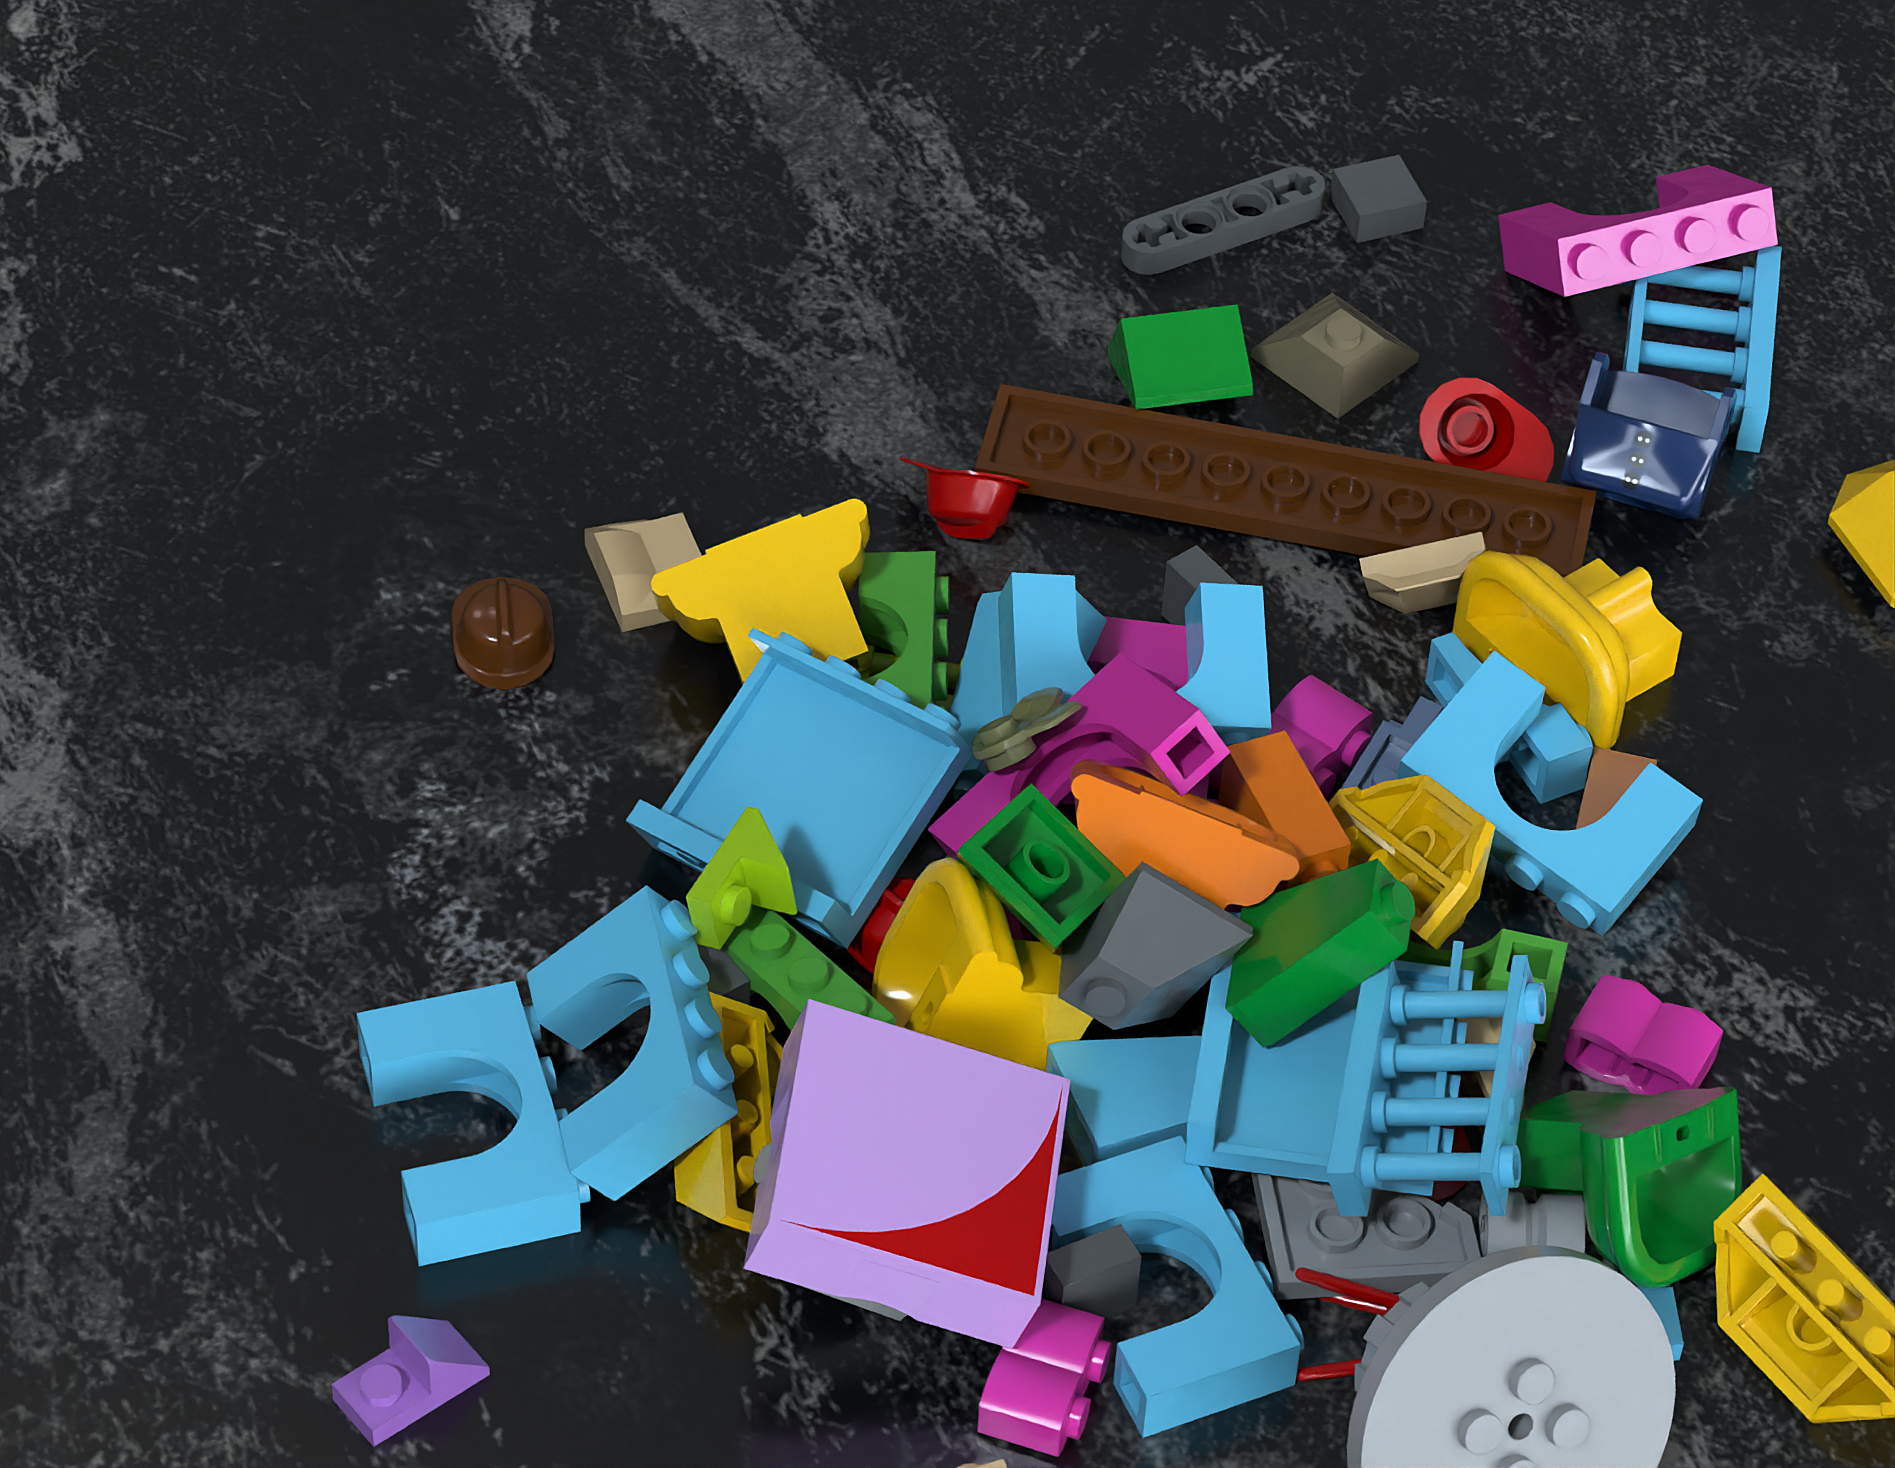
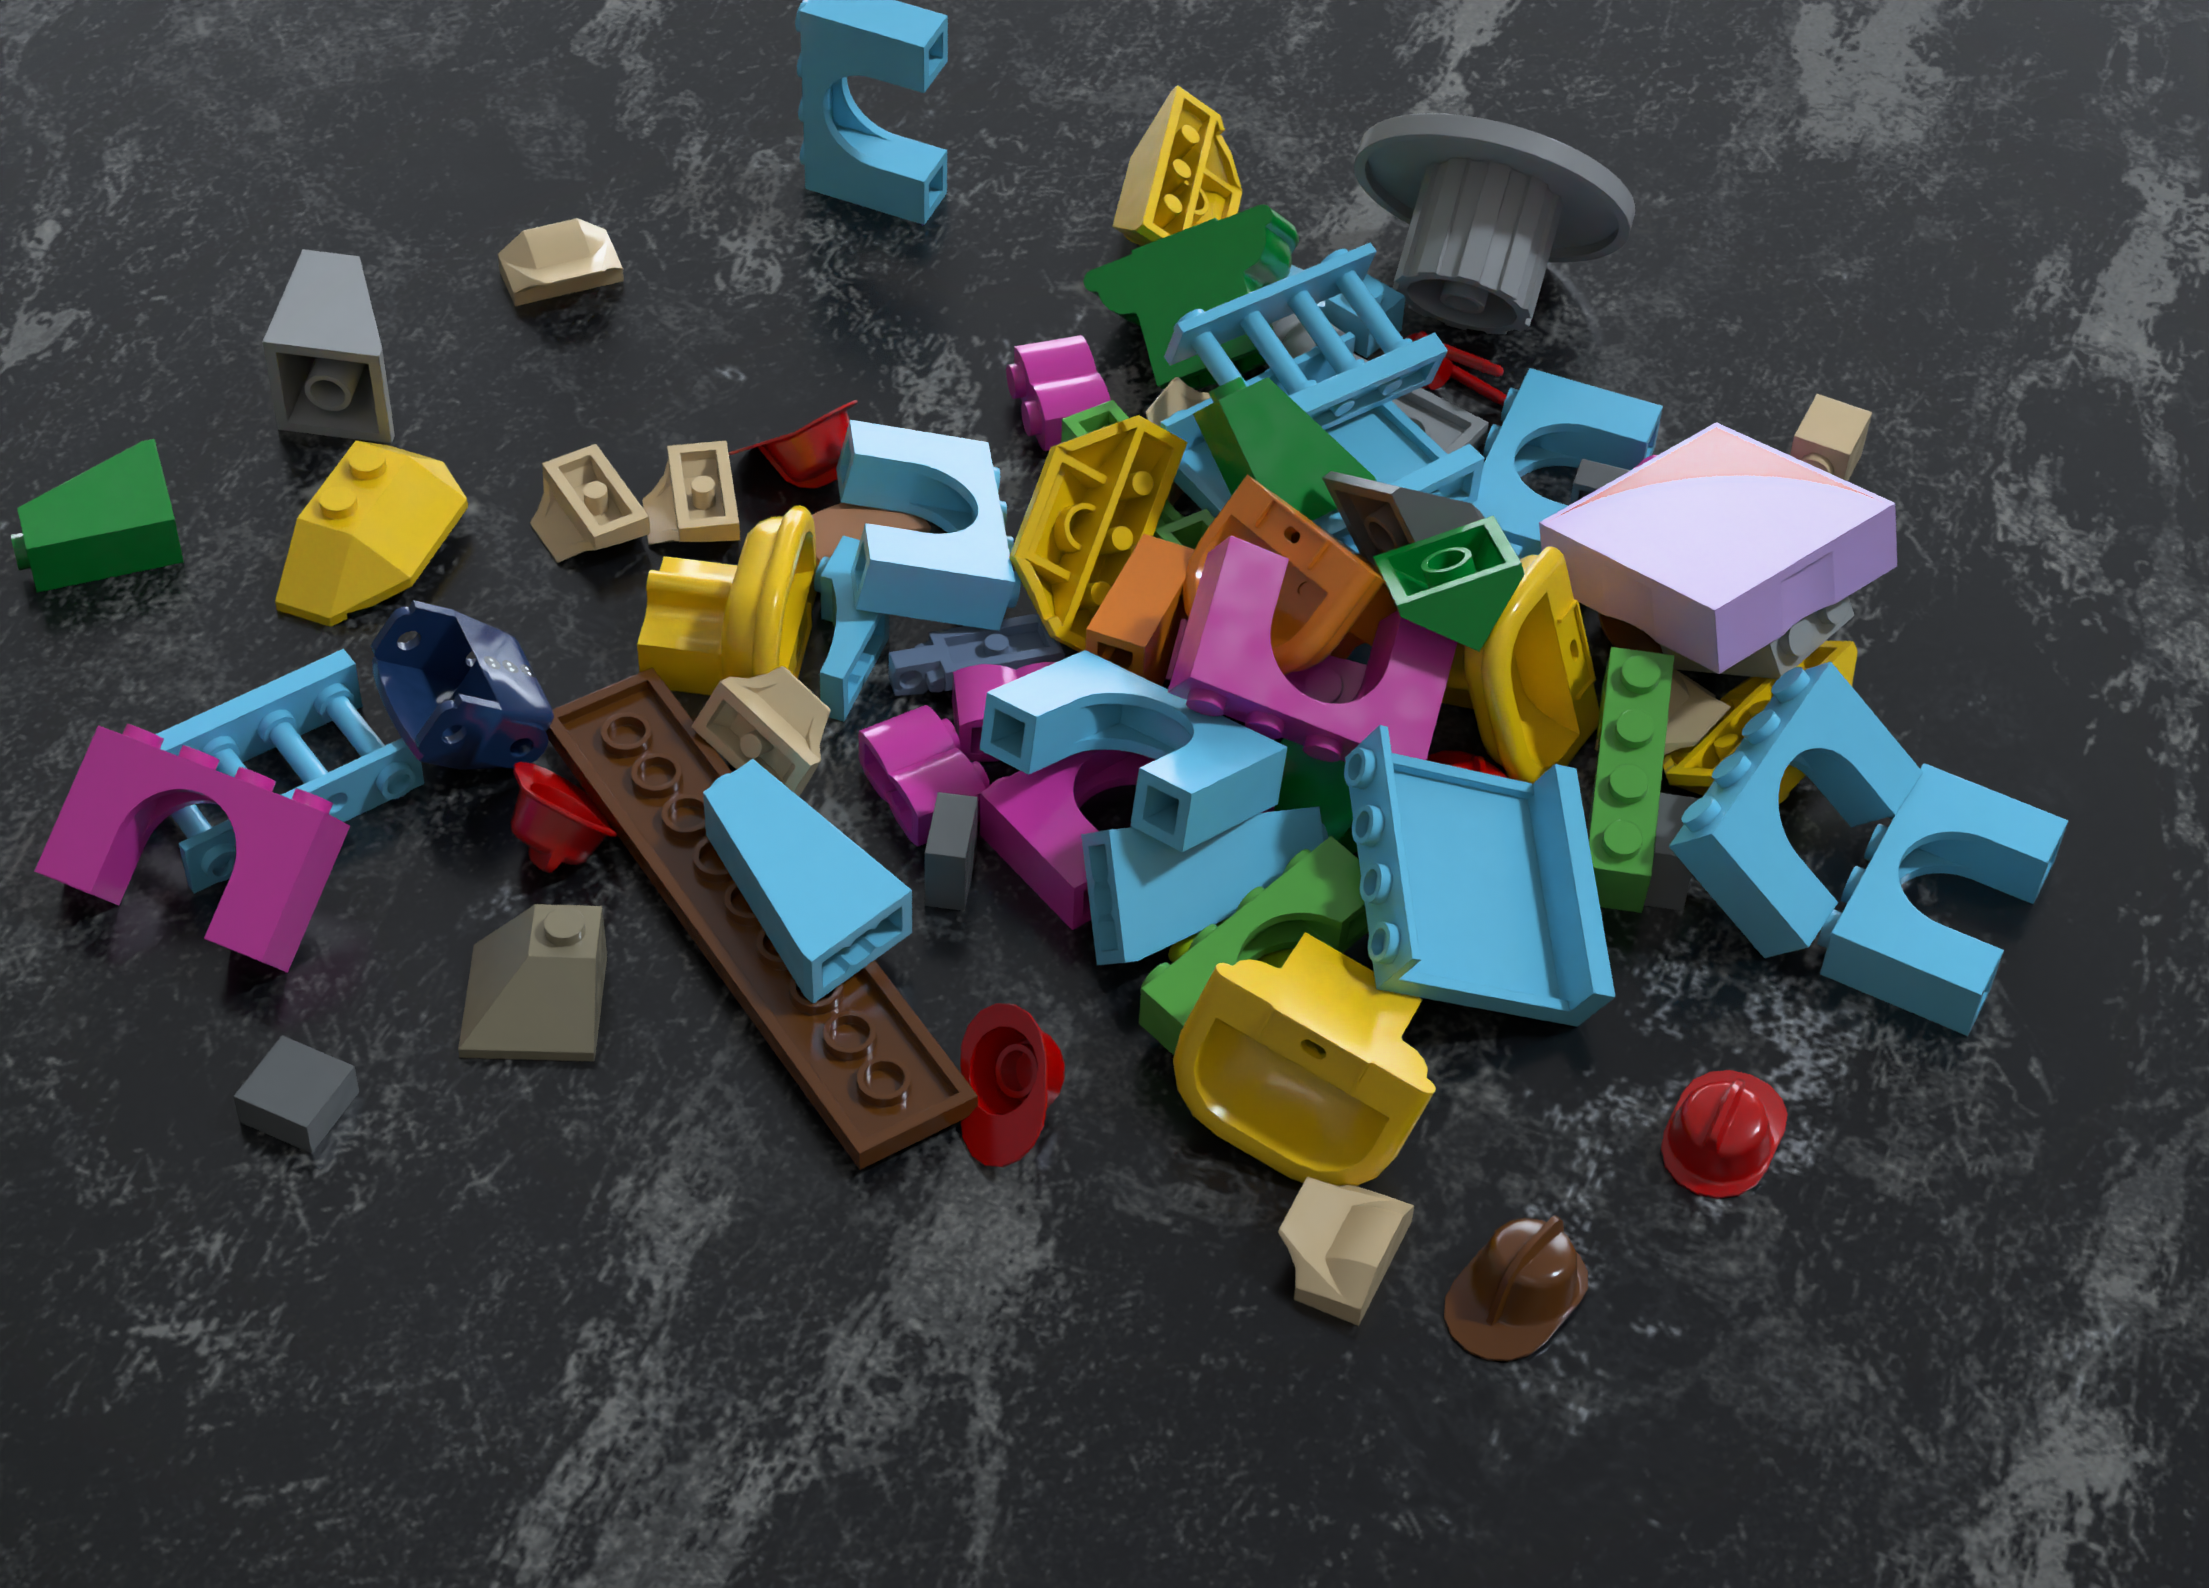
camera: 135 degrees left, 0 degrees up
(414, 1376) = (2125, 780): medium lavender slope -> none
(470, 836) = (1723, 1133): none -> red piece
(741, 873) = (1617, 813): lime slope -> none
(1010, 737) = (1300, 714): olive plate -> none
(1162, 242) = (450, 1174): dark grey beam -> none
(1181, 357) = (684, 1060): green slope -> none
(1260, 480) = (804, 880): none -> medium azure slope
(1314, 642) = (914, 760): none -> dark pink brick
(1749, 736) = (694, 496): none -> tan slope
(1753, 825) = (810, 453): none -> red piece
(1812, 673) = (586, 506): none -> tan slope

